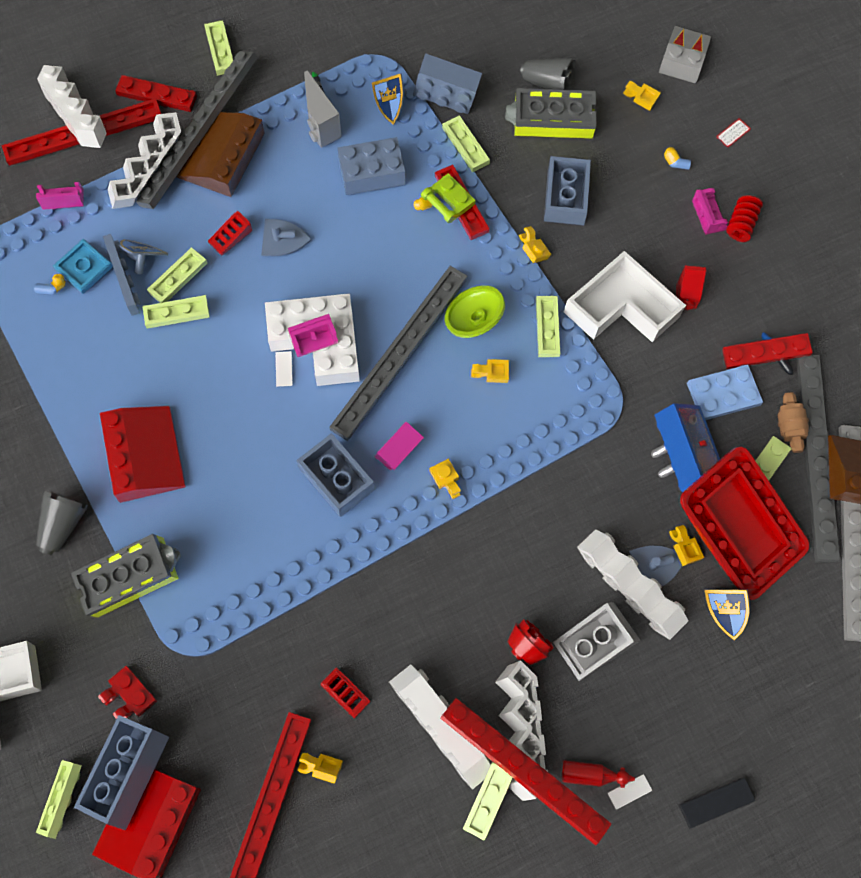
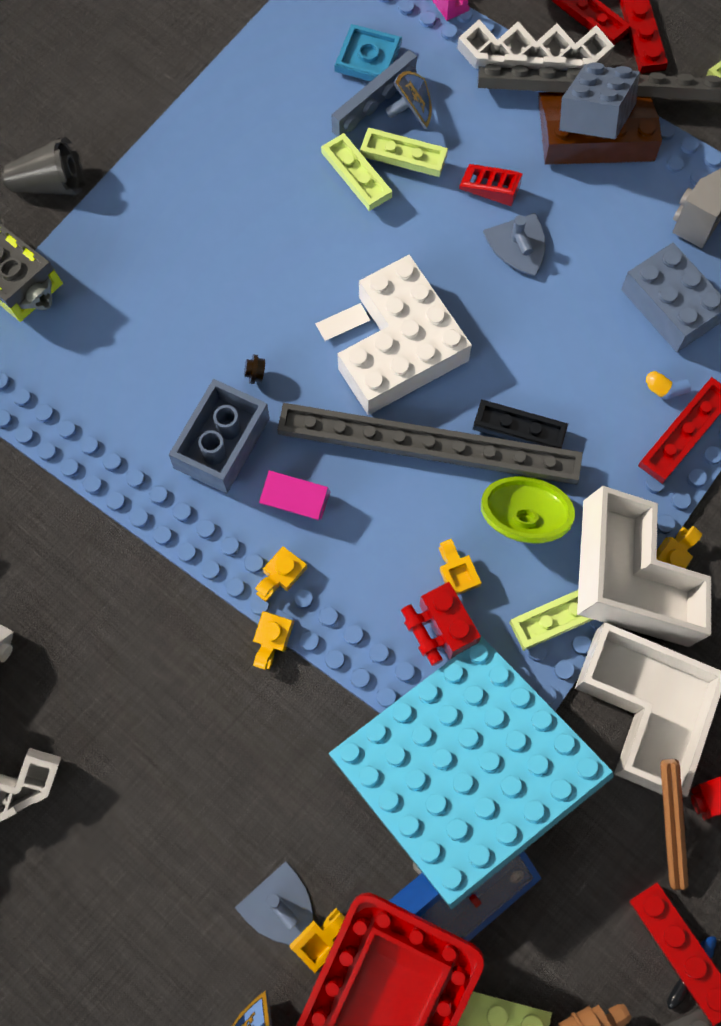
camera: 70 degrees right, 0 degrees up
(51, 288) = (330, 39): arm -> none
(141, 451) = (161, 214): red slope -> none
(217, 138) = (599, 100): none -> sand blue brick
(294, 435) = (254, 369): none -> dark brown plate
(313, 335) = (384, 322): dark pink hinge -> none
(412, 294) = (519, 425): none -> black tile
(452, 194) = (688, 412): lime plate -> none
(484, 499) = (273, 634): none -> yellow plate
(525, 388) = (448, 620): none -> red brick
(529, 643) = (94, 769): red cone -> none
(541, 277) = (625, 581): none -> white piece
(596, 640) = (135, 863): light grey slope -> none
(622, 414) = (469, 770): none -> medium azure plate
(641, 592) = (226, 893): white brick -> none
(697, 320) = (674, 824): none -> medium nougat axle
(725, 392) = (588, 913): light blue plate -> none

